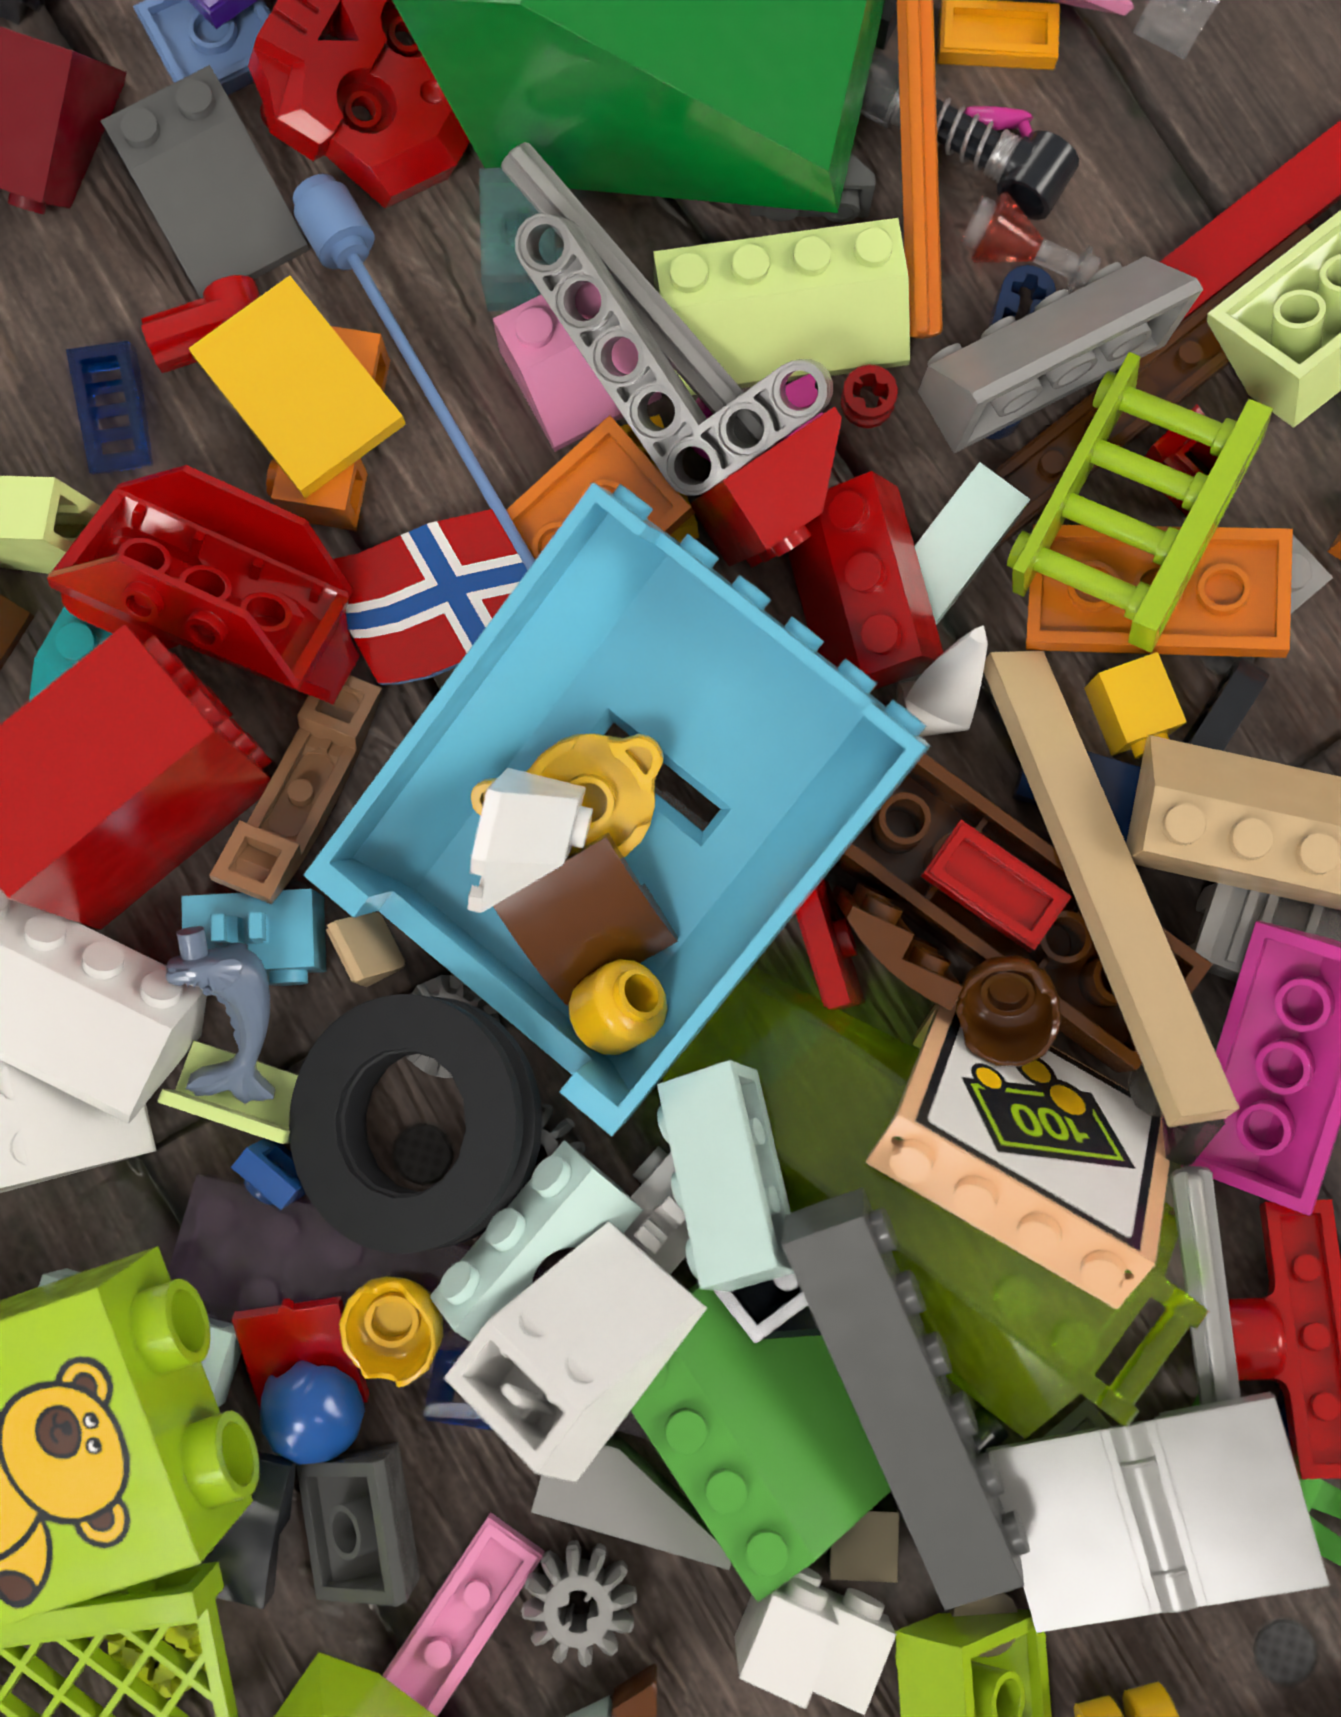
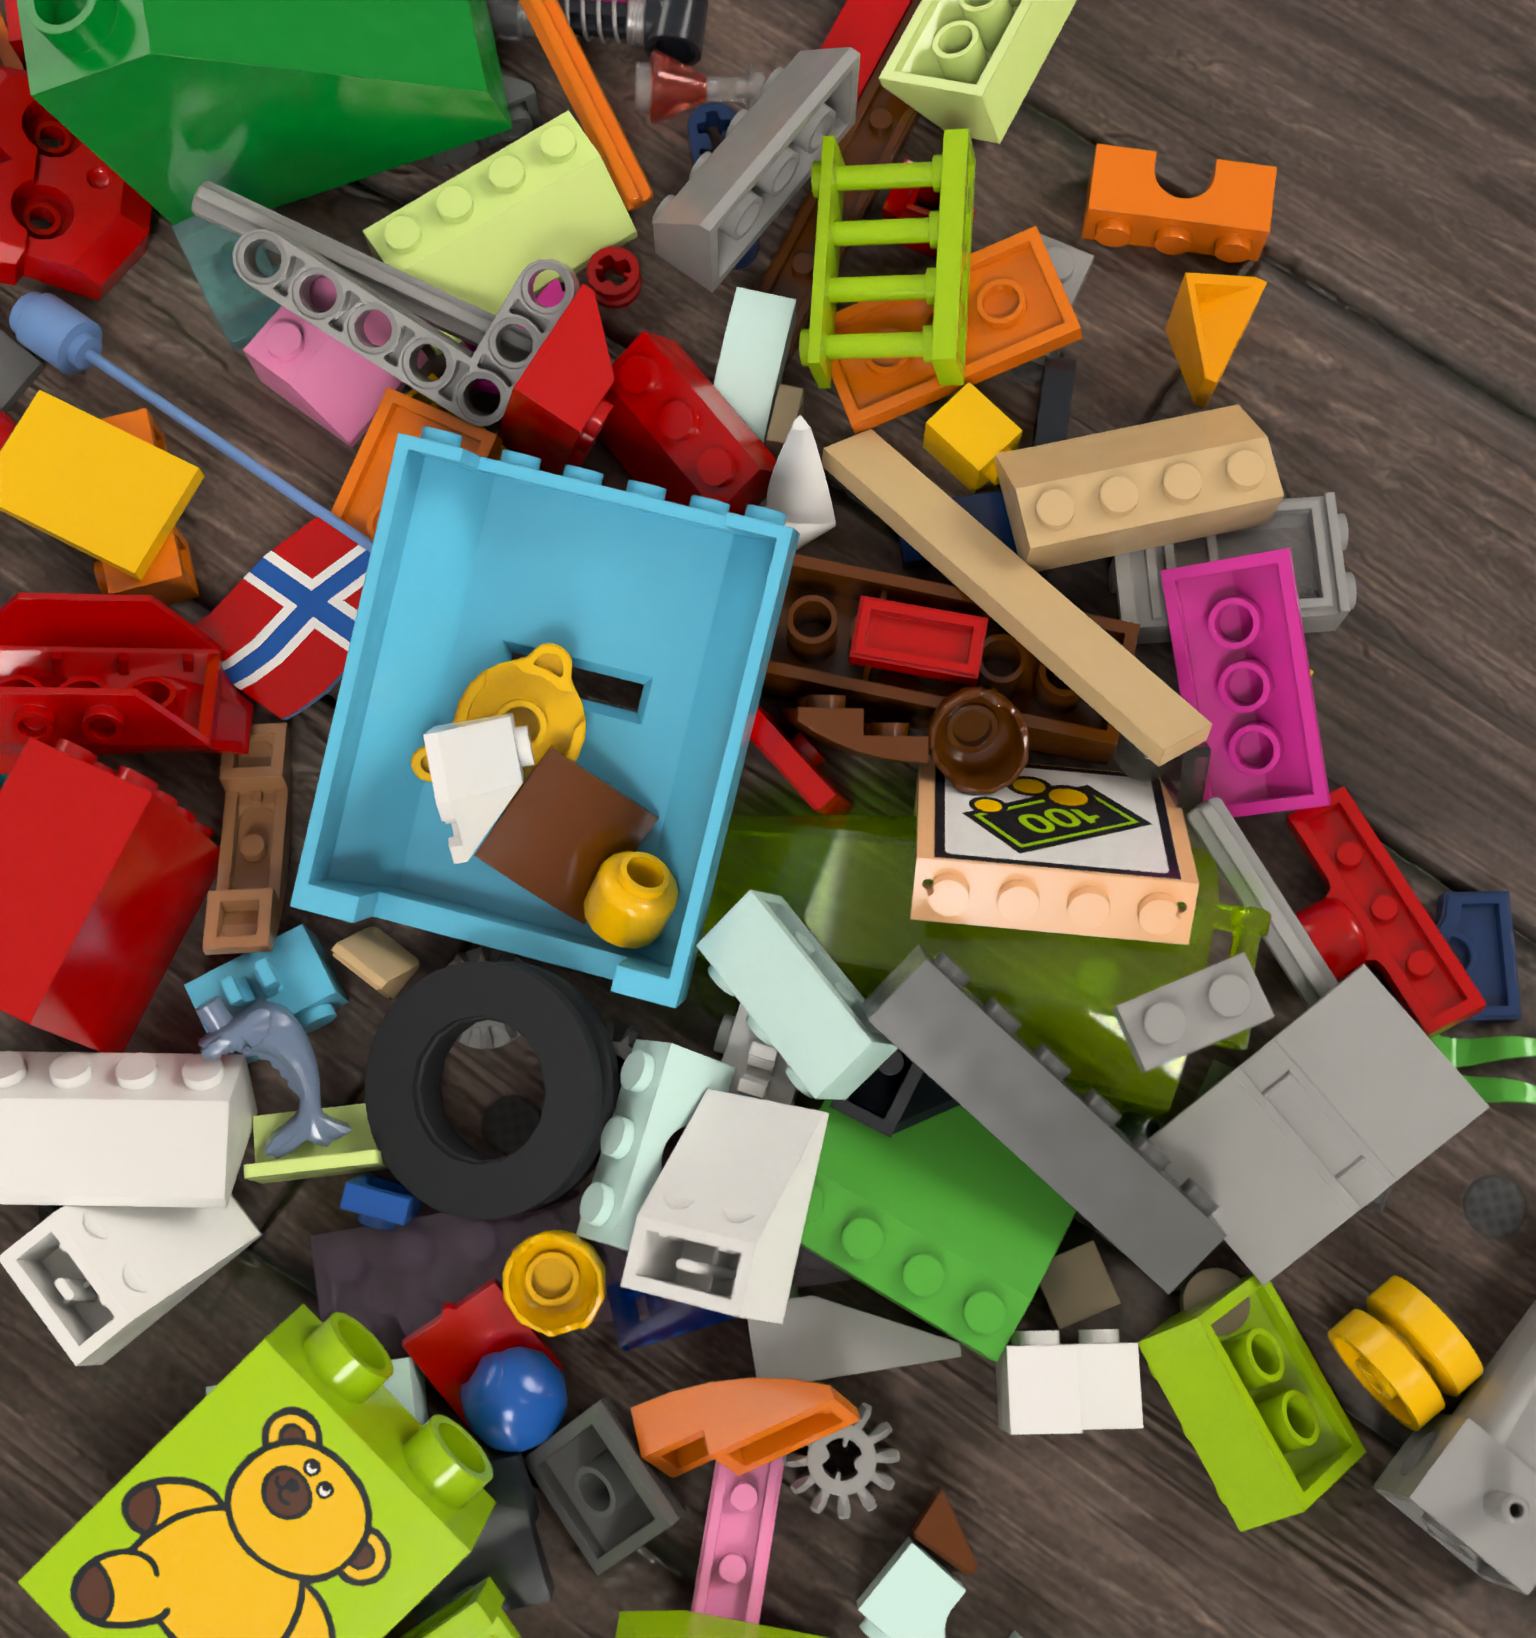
camera: 20 degrees left, 5 degrees down
(496, 1534) = (737, 1422): none -> orange slope
(965, 611) = (787, 408): none -> dark tan tile
(1091, 1377) = (1193, 1012): none -> light grey plate

